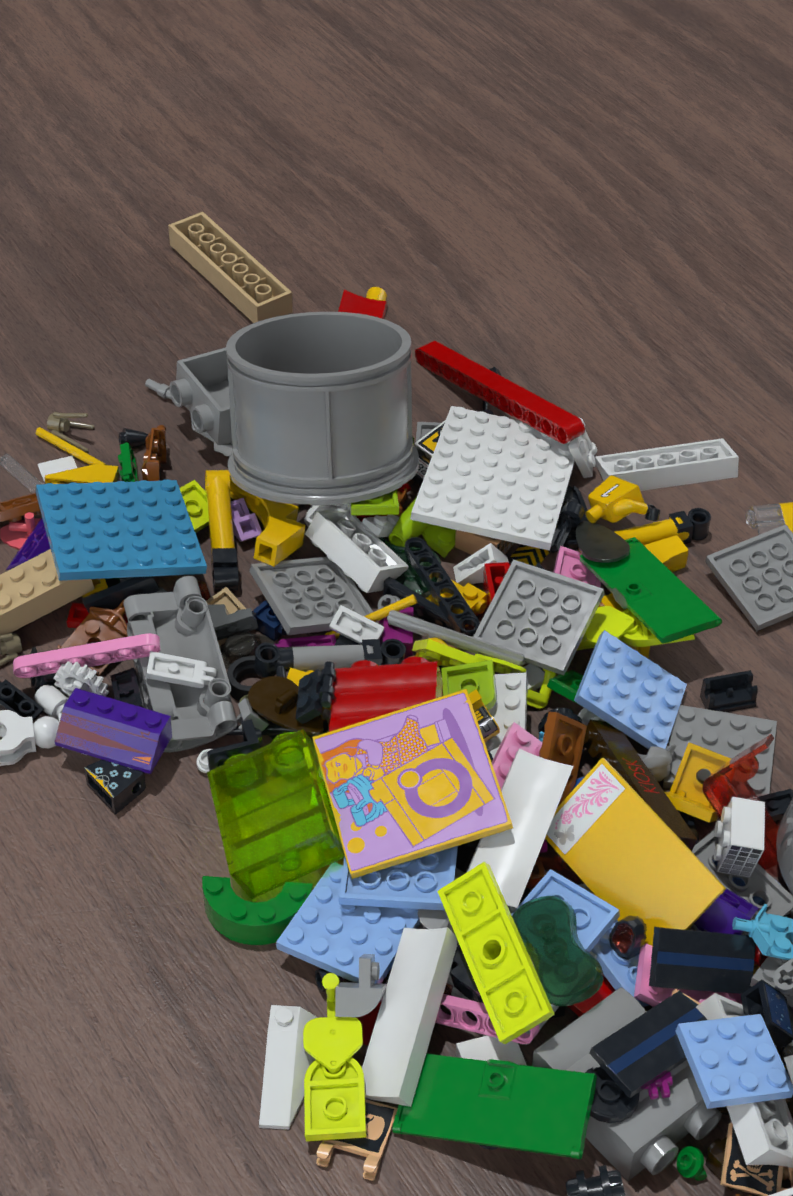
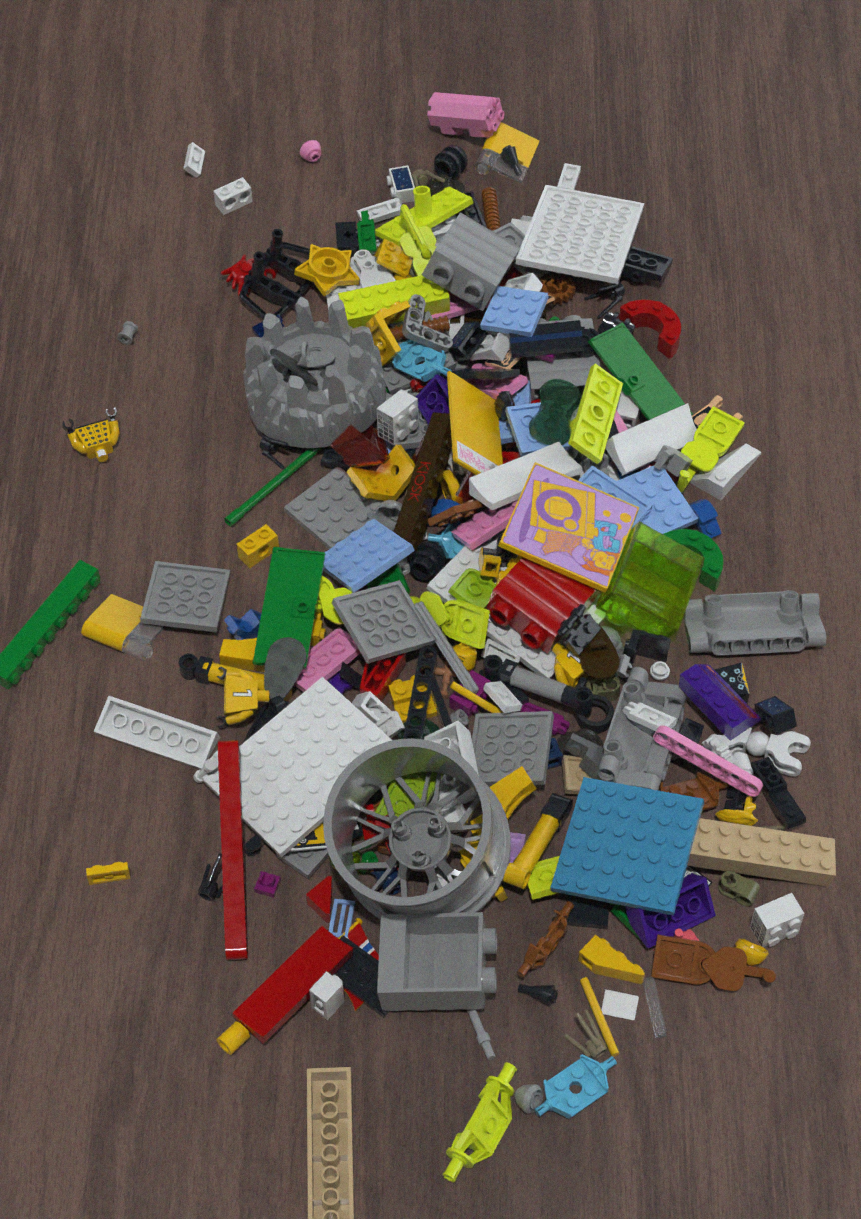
camera: 145 degrees left, 10 degrees up
(24, 647) = (737, 816): none -> yellow piece
(40, 759) = (776, 715): none -> black brick
(64, 381) = (585, 1073): none -> medium azure plate
(95, 367) = (529, 1097): none -> light grey cone
(117, 345) = (485, 1126): none -> neon yellow plate
(123, 862) = (754, 623): none -> light grey panel
(128, 463) = (569, 954): green hinge -> none
(278, 962) = (706, 516): none -> blue brick
(444, 405) = (267, 884): none -> magenta tile
(451, 553) = (391, 724): none -> white plate
(589, 351) = (108, 873): none -> yellow plate
(687, 567) = (245, 627): none -> blue brick
(729, 692) = (295, 540): black hinge -> none
(758, 657) = (257, 546): none -> yellow brick

